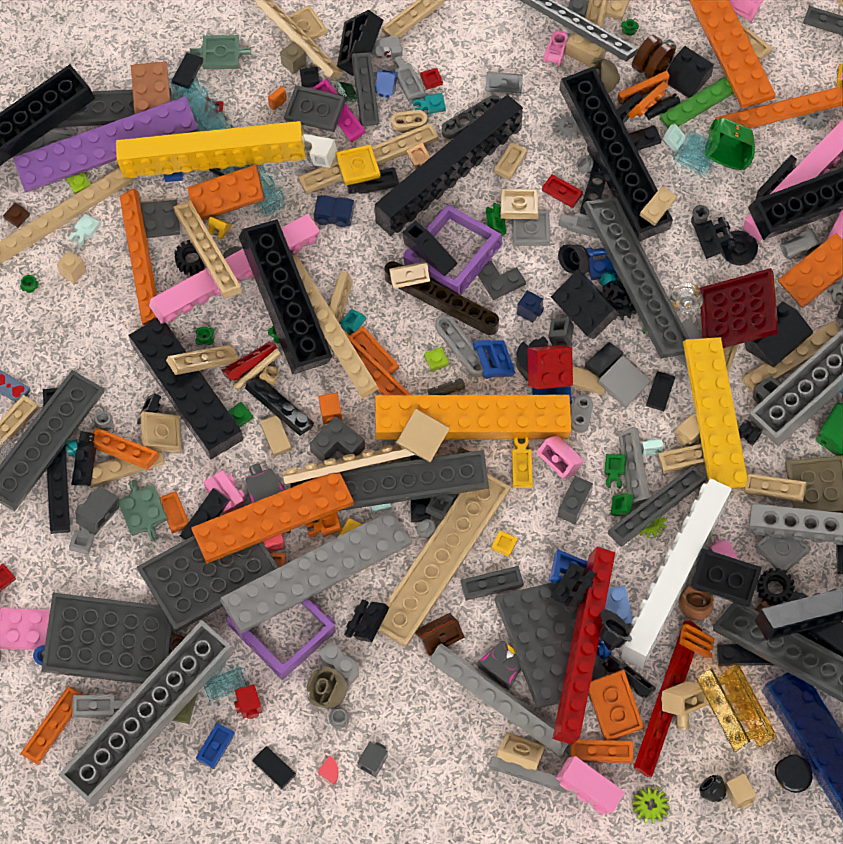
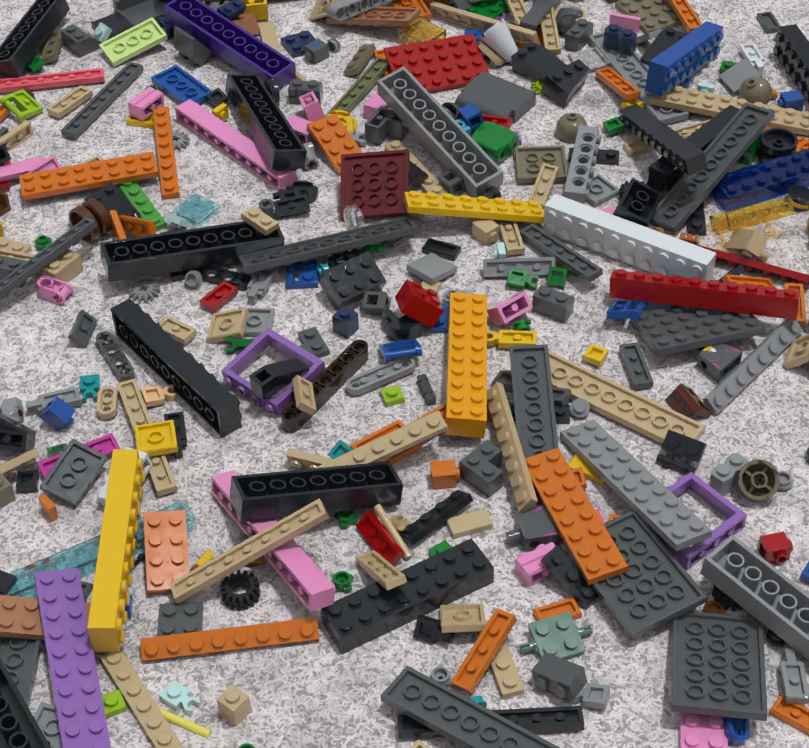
camera: 85 degrees left, 20 degrees down
(62, 236) = (186, 724): none -> light yellow bar
(84, 460) = (497, 689): black hinge -> none
(333, 211) = (205, 464): dark blue brick -> none
(365, 89) = (62, 427): dark grey plate -> none
(422, 435) = (493, 384): tan tile -> none
(431, 78) = (58, 383): red tile -> none
(540, 472) = (522, 324): none -> green plate
(573, 585) = (647, 300): black plate -> none
(574, 258) = (301, 285): black piece -> none
(604, 359) = (401, 274): black tile -> none
(607, 72) = (91, 259): dark tan cylinder -> none
(613, 630) = (700, 269): black piece -> none
(730, 144) = (198, 181): green piece -> none
(777, 177) = (237, 163): black plate -> none

